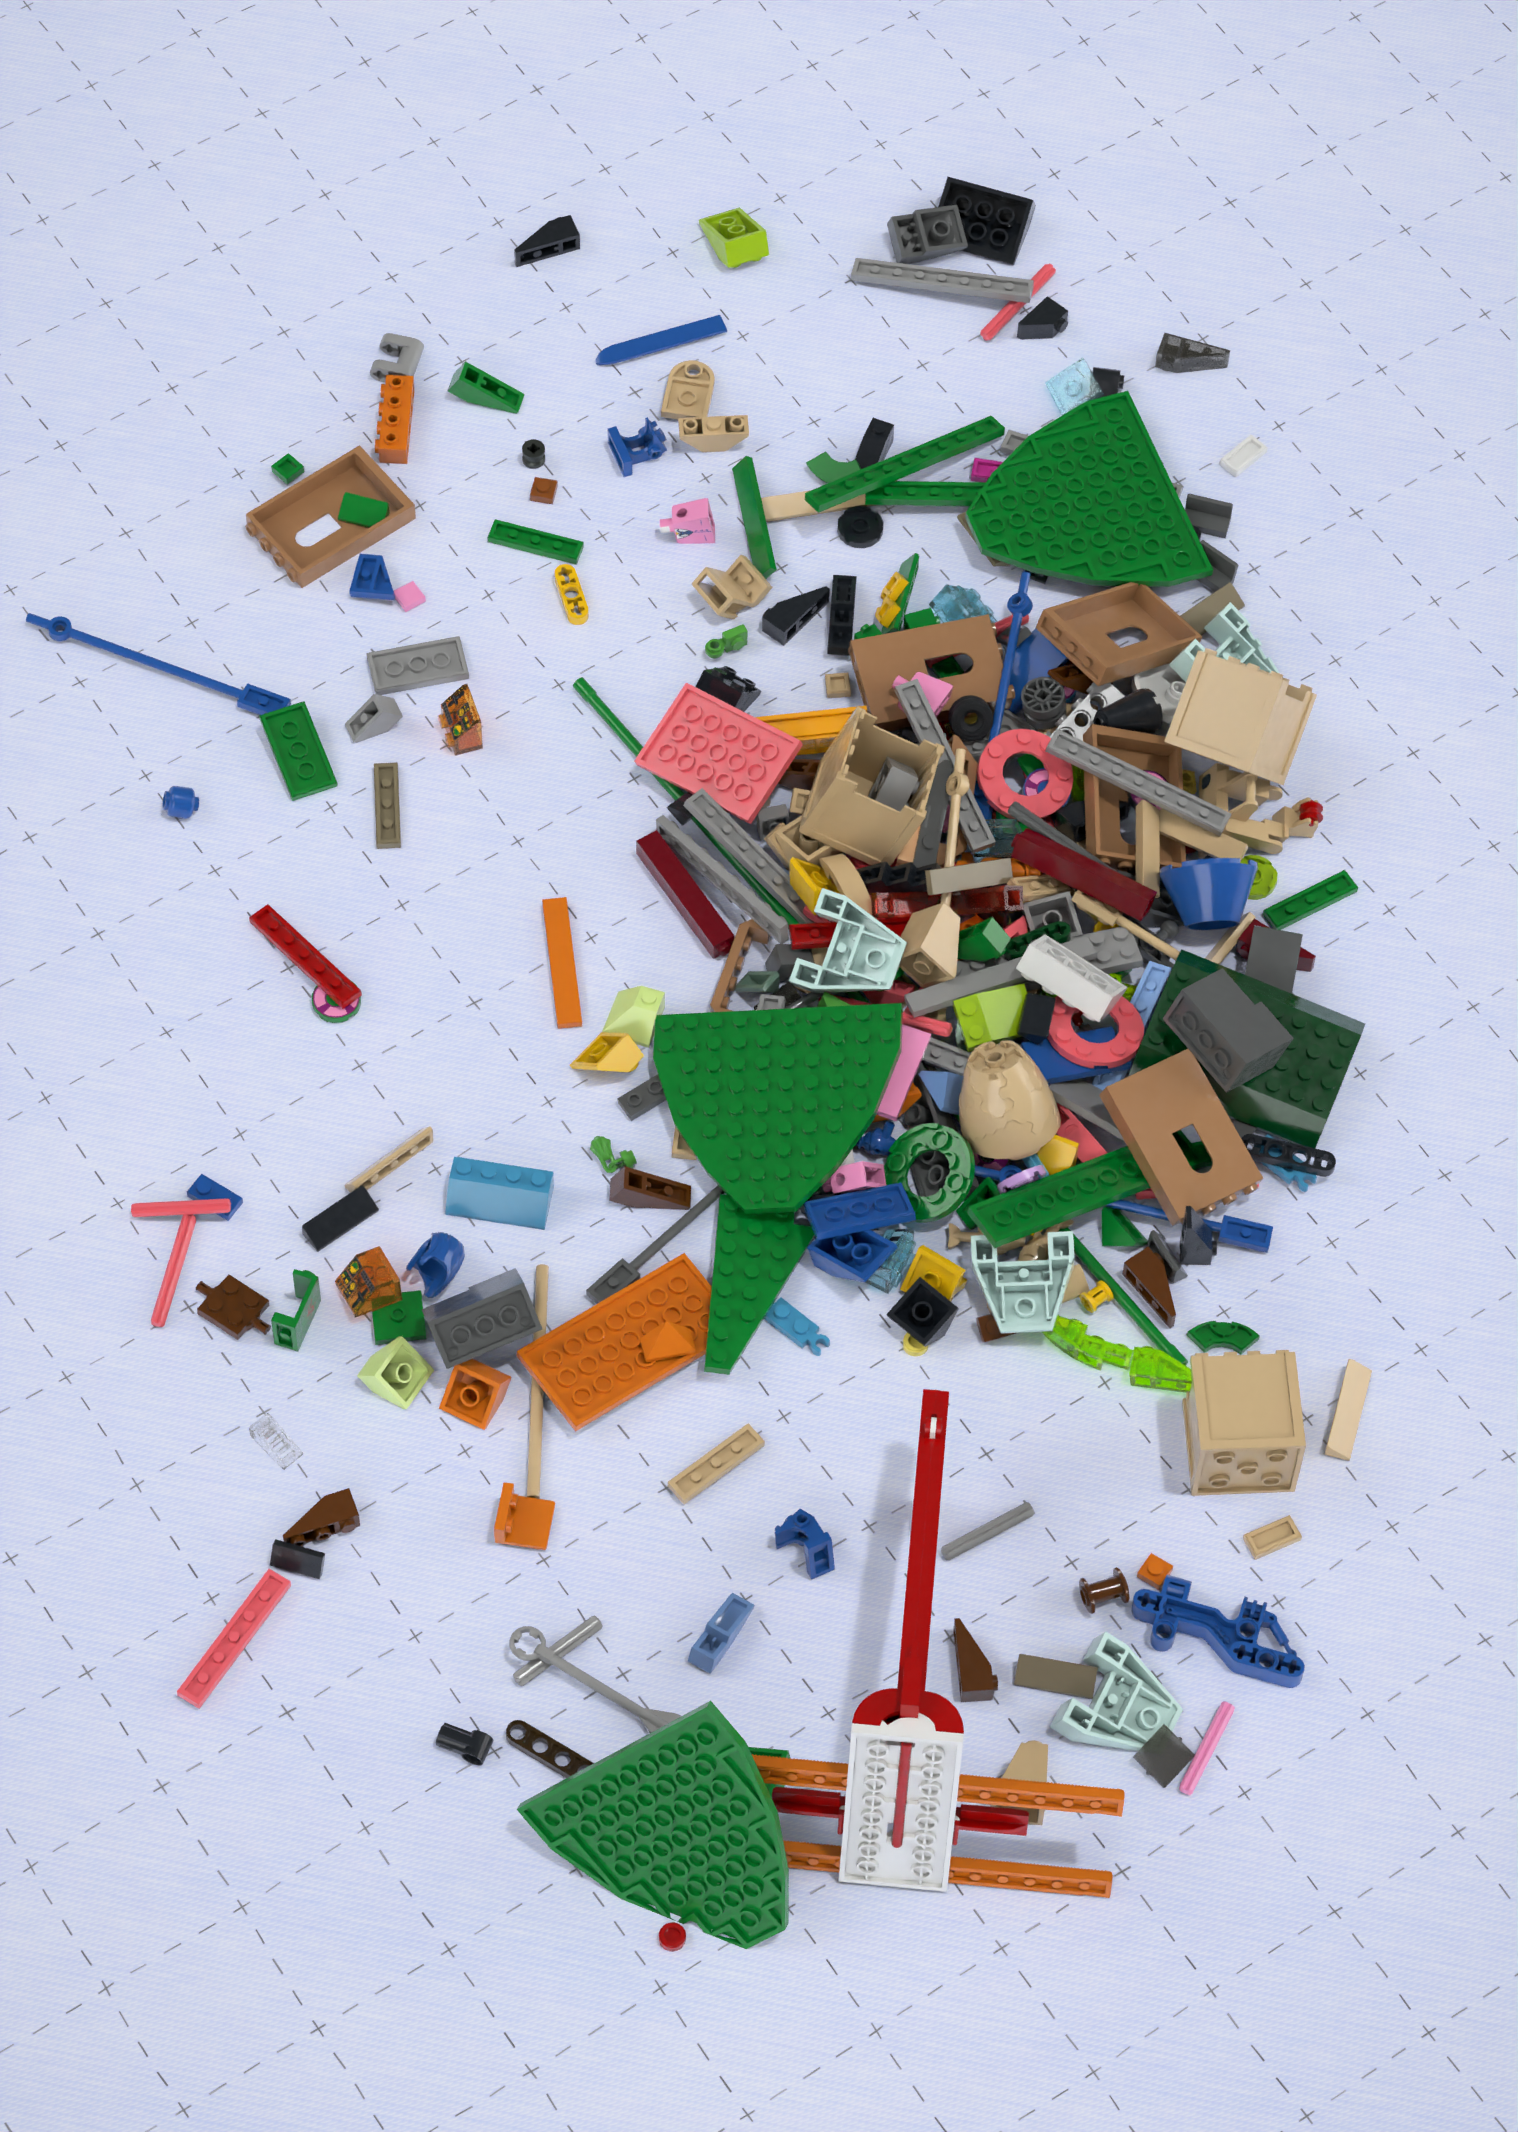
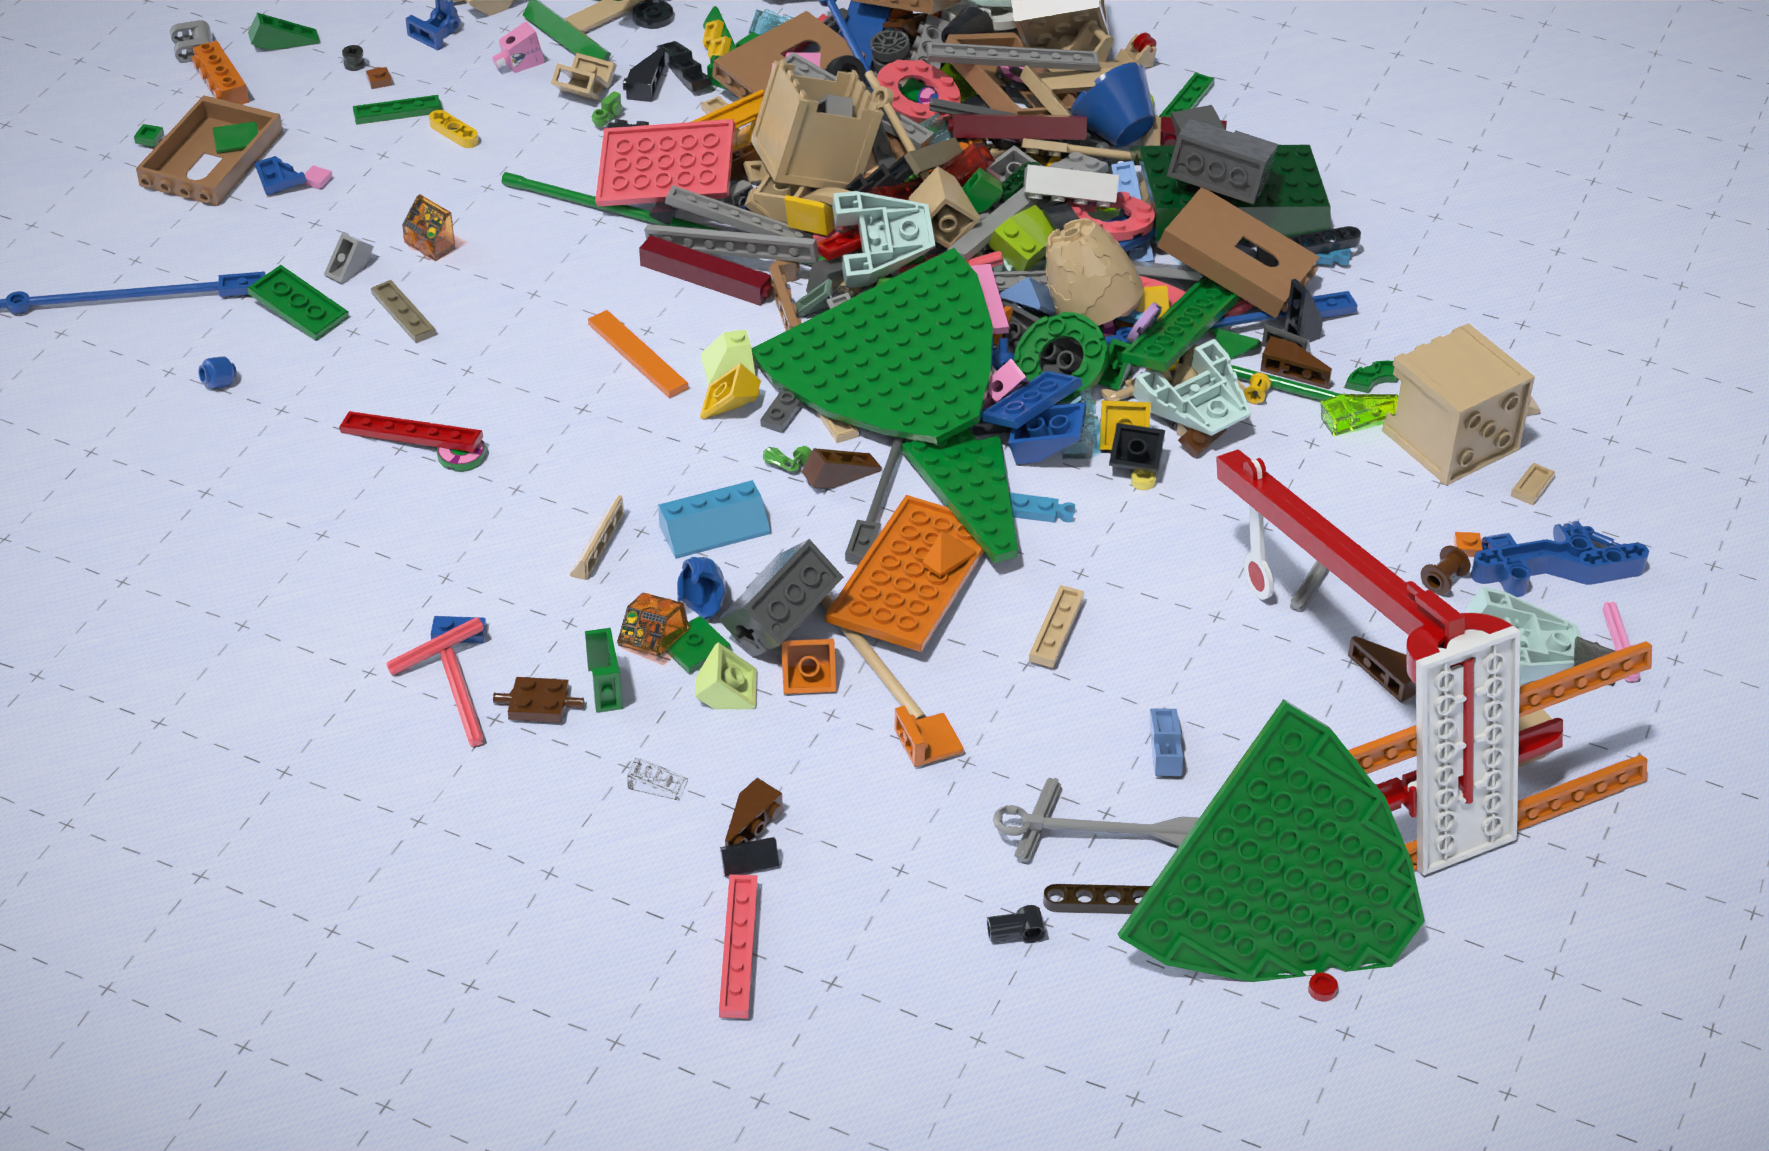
camera: 30 degrees left, 15 degrees down
(339, 1218) = (585, 597): black slope -> none
(417, 665) = (358, 215): light grey tile -> none
(816, 1545) = (1179, 634): blue tile -> none
(1093, 1351) = (1280, 423): clear neon green slope -> none

